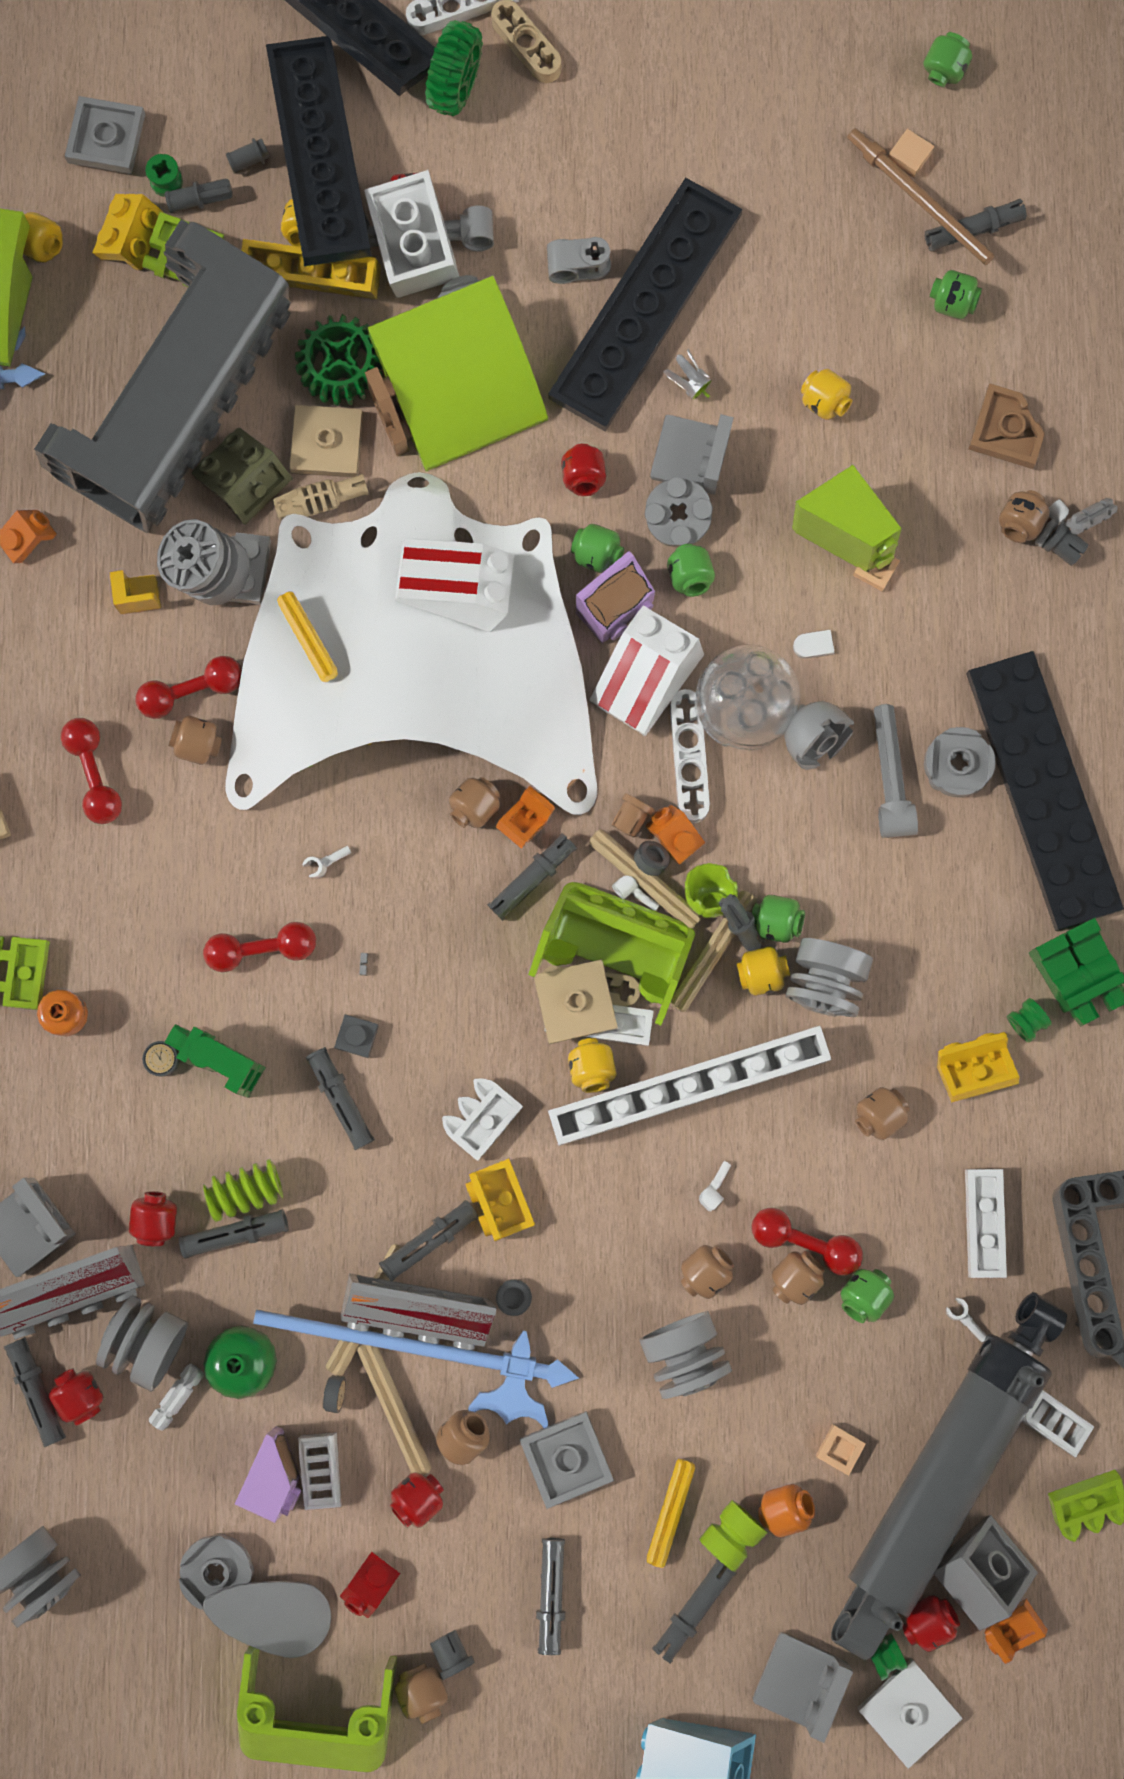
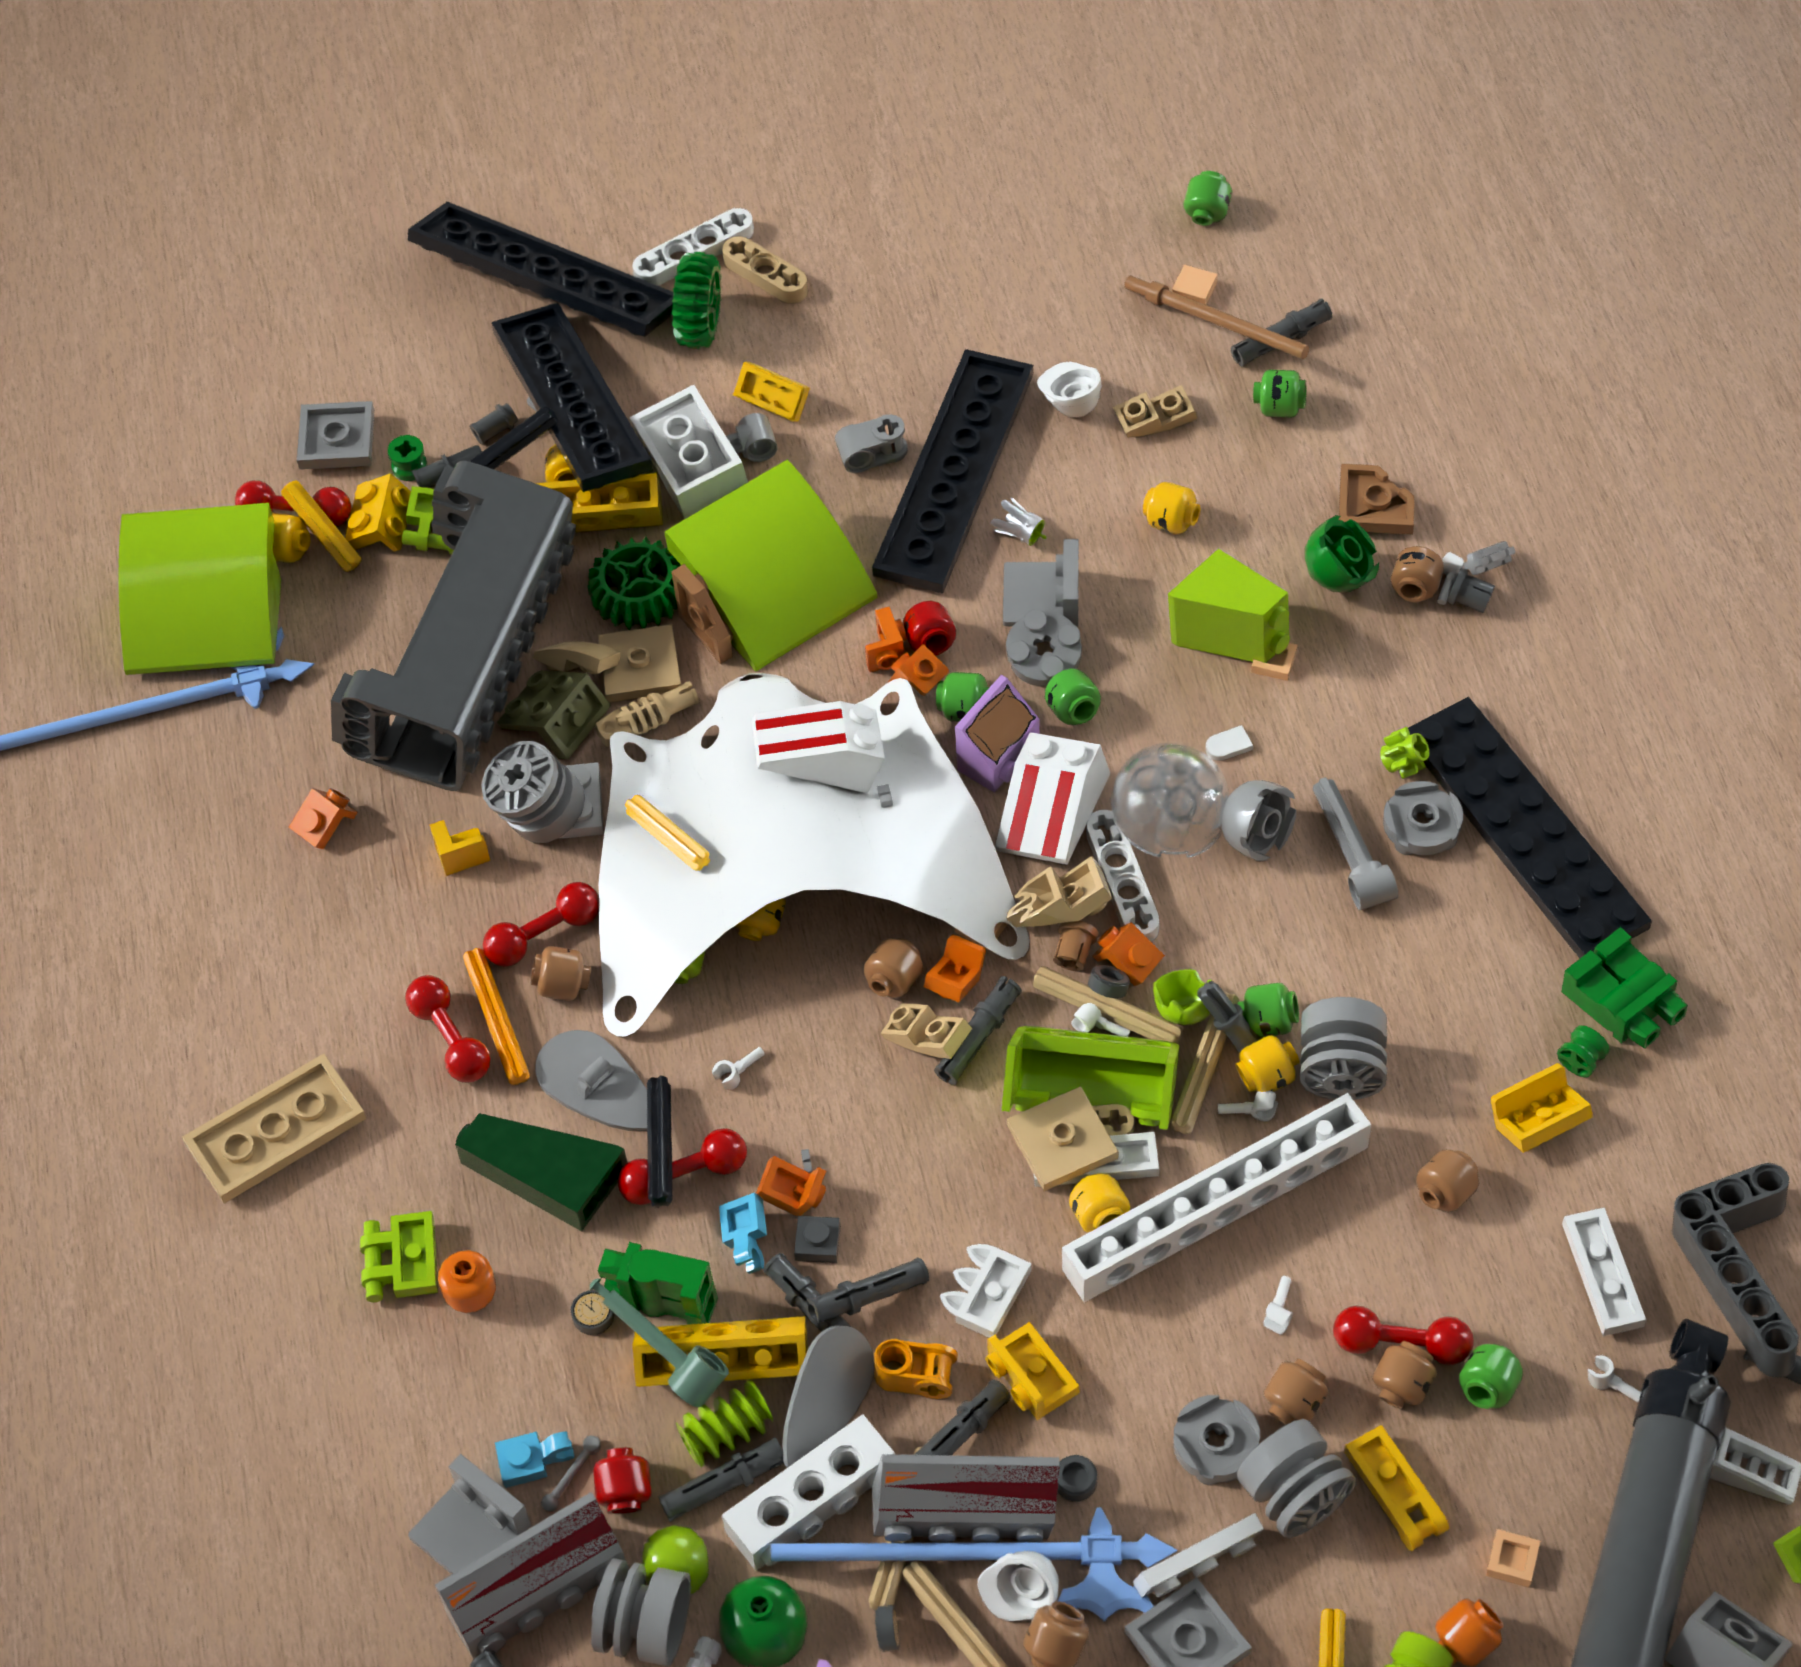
camera: 10 degrees left, 25 degrees down
(24, 192) = (330, 499): none -> red piece
(72, 234) = (321, 526): none -> yellow axle
(83, 1175) = (525, 1457): none -> medium azure plate
(135, 765) = (496, 1016): none -> light orange axle
(137, 1174) = (591, 1446): none -> light grey hinge
(149, 923) = (543, 1166): none -> dark green slope
(182, 1292) = (677, 1550): none -> lime hair
(205, 843) = (592, 1080): none -> light grey shield
(224, 1153) = (694, 1374): none -> sand green piece
(242, 197) = (517, 439): none -> black axle
(244, 923) = (659, 1141): none -> black axle
(245, 1280) = (853, 1445): none -> white brick
(253, 1127) = (746, 1347): none -> yellow brick
(277, 426) = (570, 655): none -> tan slope
(297, 1013) = (741, 1225): none -> medium azure plate
(330, 1184) = (827, 1390): none -> light grey shield
(344, 987) = (791, 1187): none -> orange bracket
(344, 1112) = (851, 1296): none -> dark grey pin
(411, 1177) = (918, 1368): none -> light orange piece
(448, 1385) = (1019, 1585): none -> white hat
(488, 868) = (925, 1032): none -> tan slope
(501, 180) = (771, 391): none -> yellow plate
(503, 637) = (885, 795): none -> light grey piece
(545, 485) = (890, 648): none -> orange bracket
(563, 514) = (920, 669): none -> orange bracket
(592, 1396) = (1199, 1557): none -> white plate
(623, 1312) = (1191, 1435): none -> light grey plate
(631, 770) = (1061, 899): none -> tan plate
(750, 1004) = (1262, 1108): none -> white hand
(764, 1369) = (1396, 1487): none -> yellow plate
(770, 241) = (1071, 388): none -> white hat
(839, 286) = (1150, 416): none -> tan slope
(961, 696) = (1404, 752): none -> lime gear
(962, 485) = (1340, 555): none -> green cylinder

